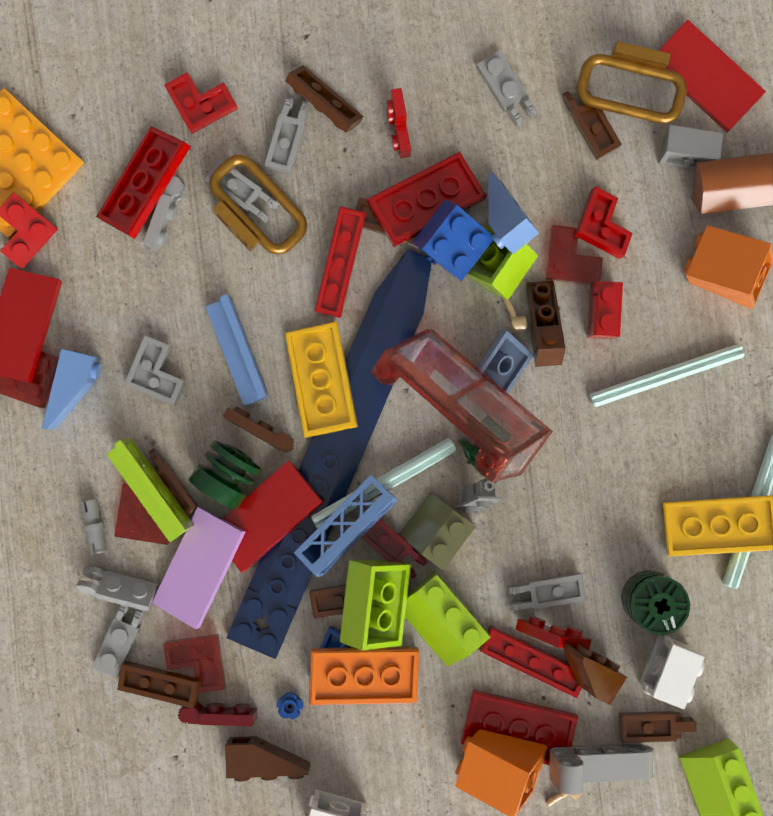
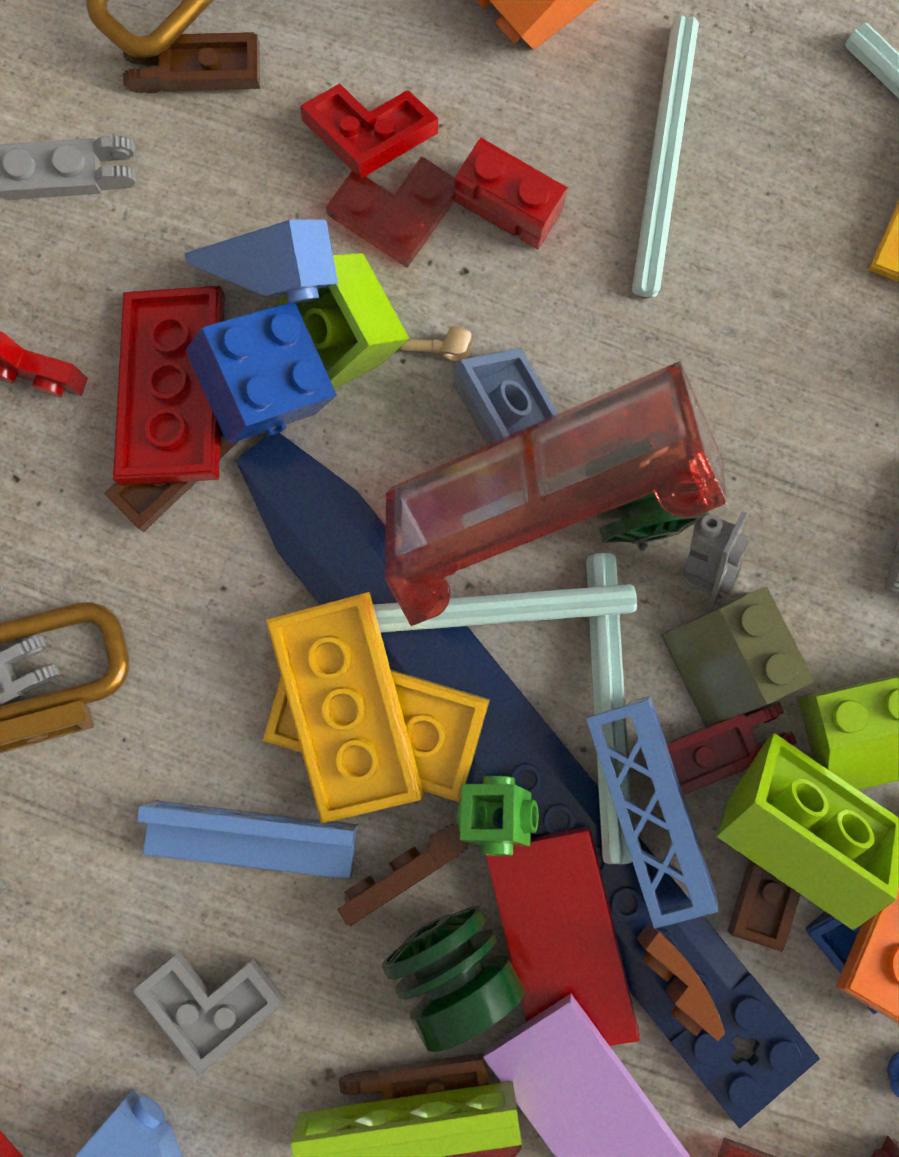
camera: 65 degrees left, 5 degrees down
(272, 582) = (692, 1000): none -> dark orange slope
(307, 449) = (480, 811): none -> bright green brick
(319, 362) = (345, 708): none -> yellow tile
(340, 261) = (191, 579): red tile -> none
(398, 405) = (517, 608): none -> light aqua axle
(545, 324) = (484, 301): reddish brown slope -> none

